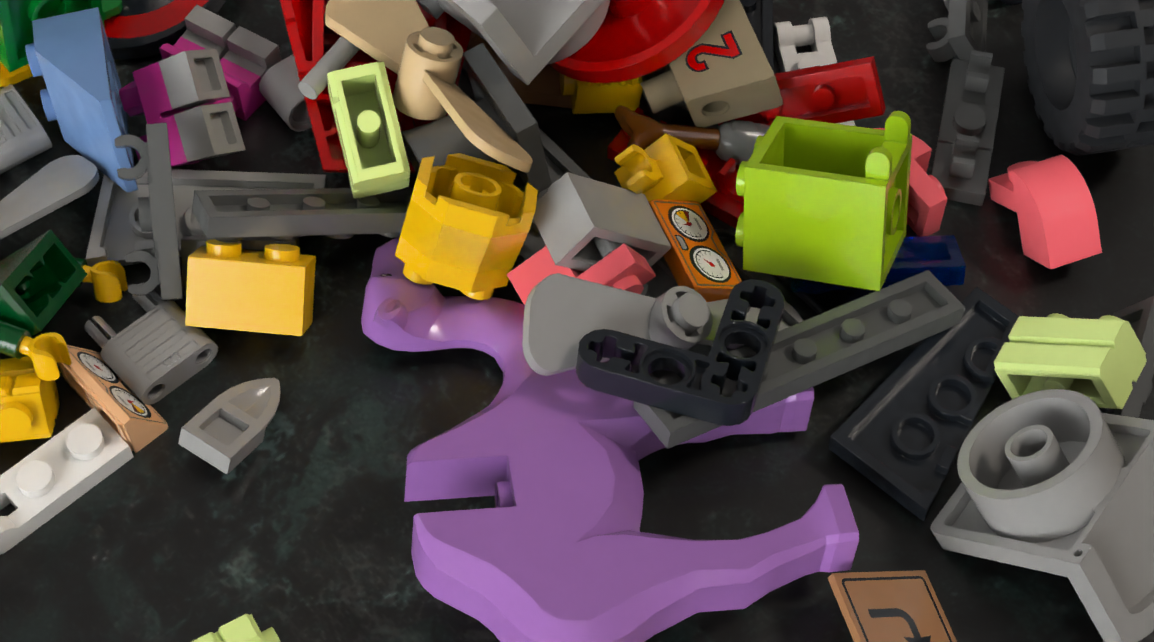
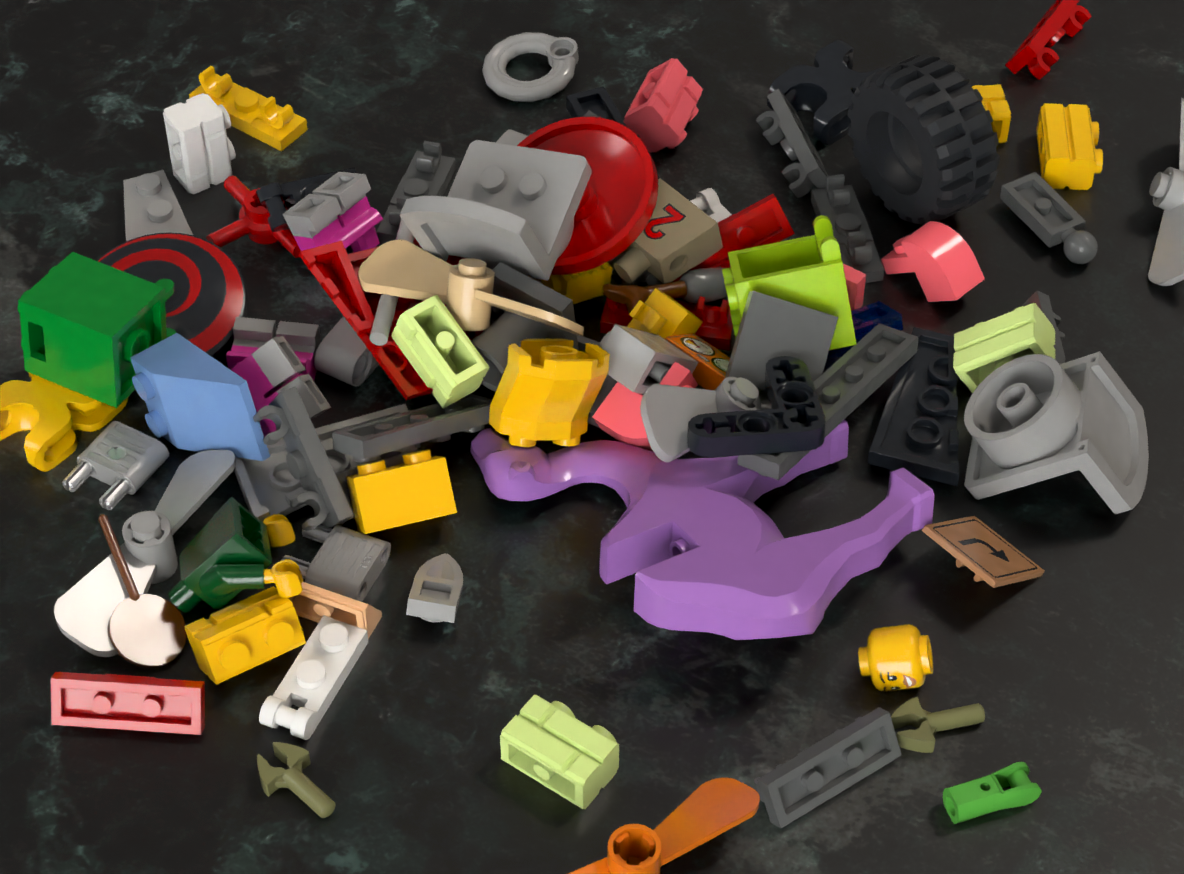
camera: 25 degrees left, 10 degrees down
(778, 246) = (778, 329): none -> dark grey tile

